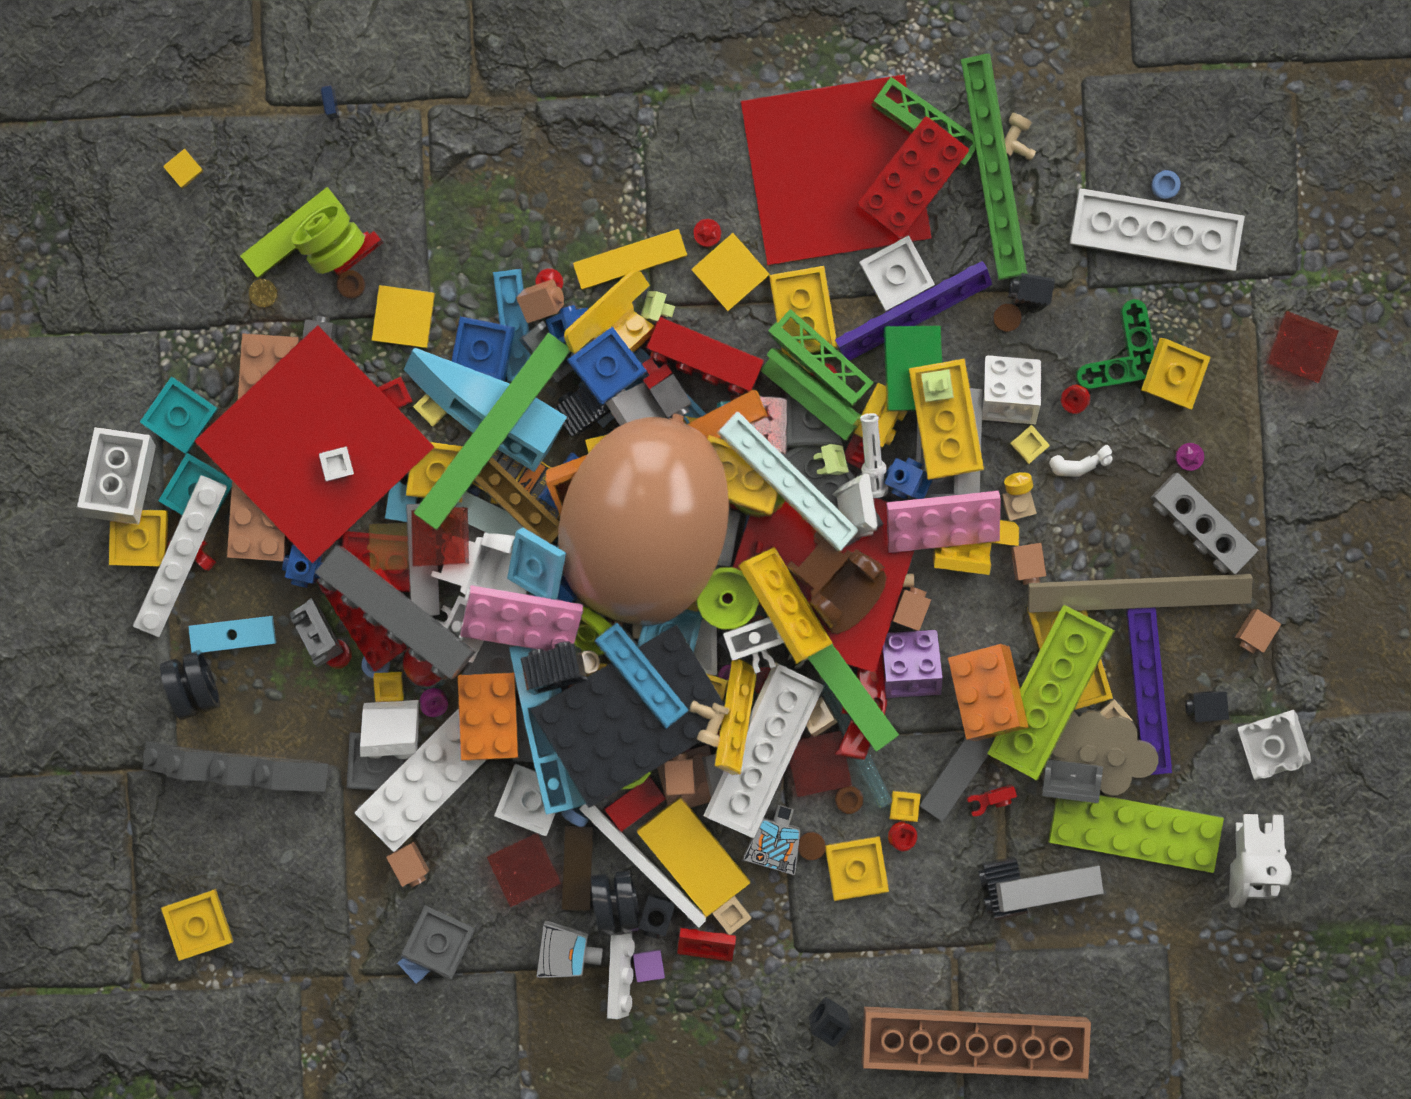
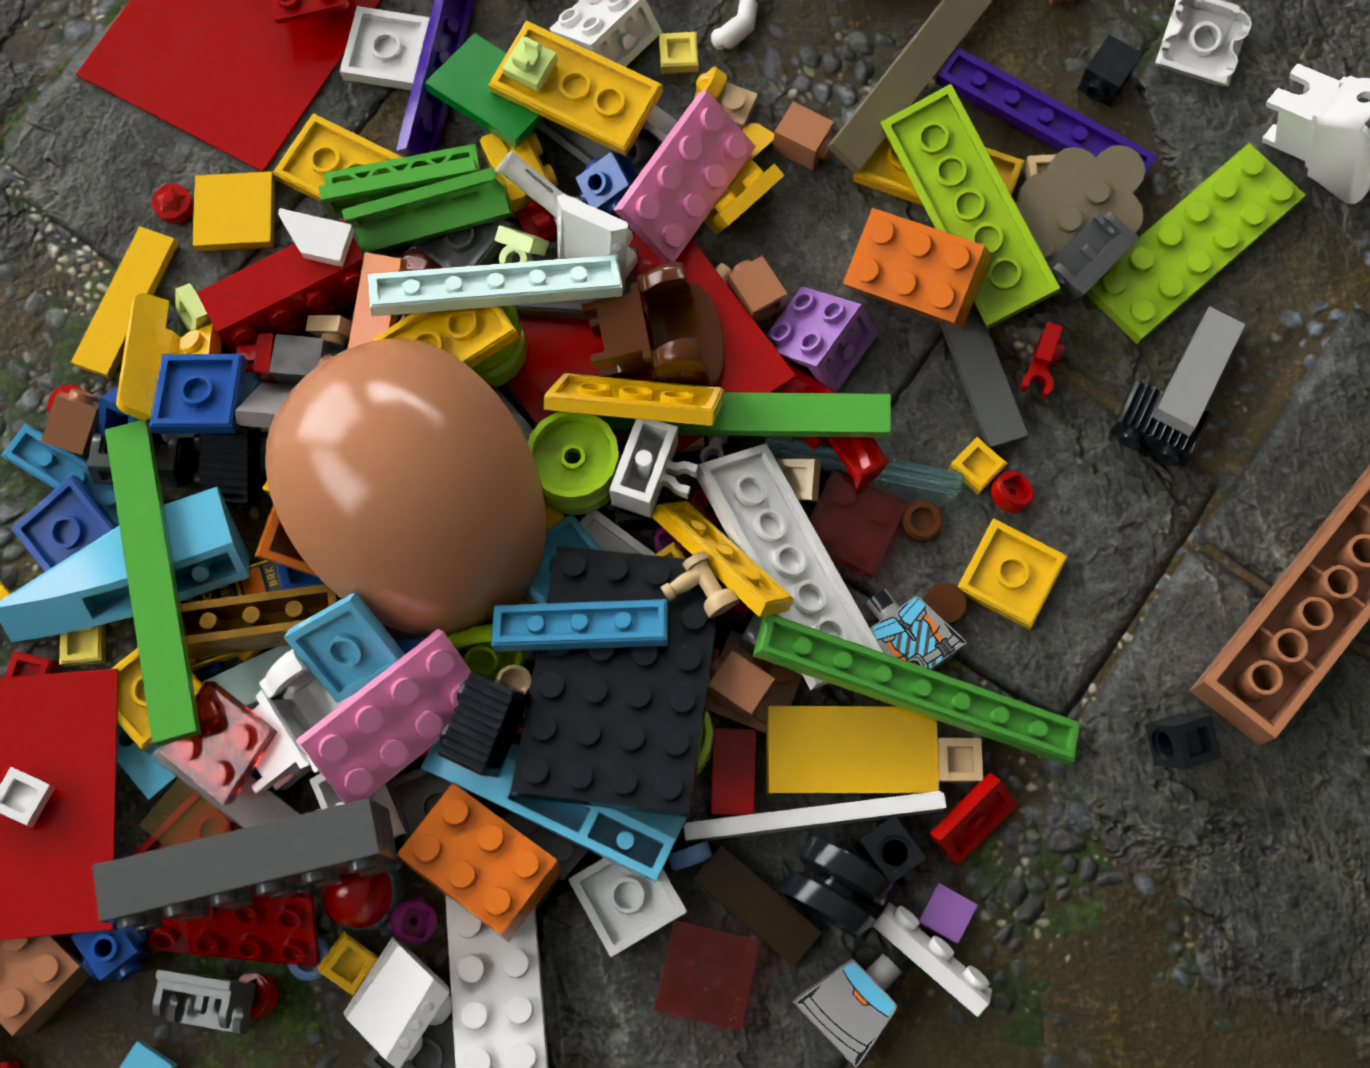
camera: 45 degrees left, 15 degrees down
(702, 396) = (332, 328): none -> tan plate
(740, 358) = (318, 237): none -> white tile
(747, 869) = (916, 689): none -> bright green tile

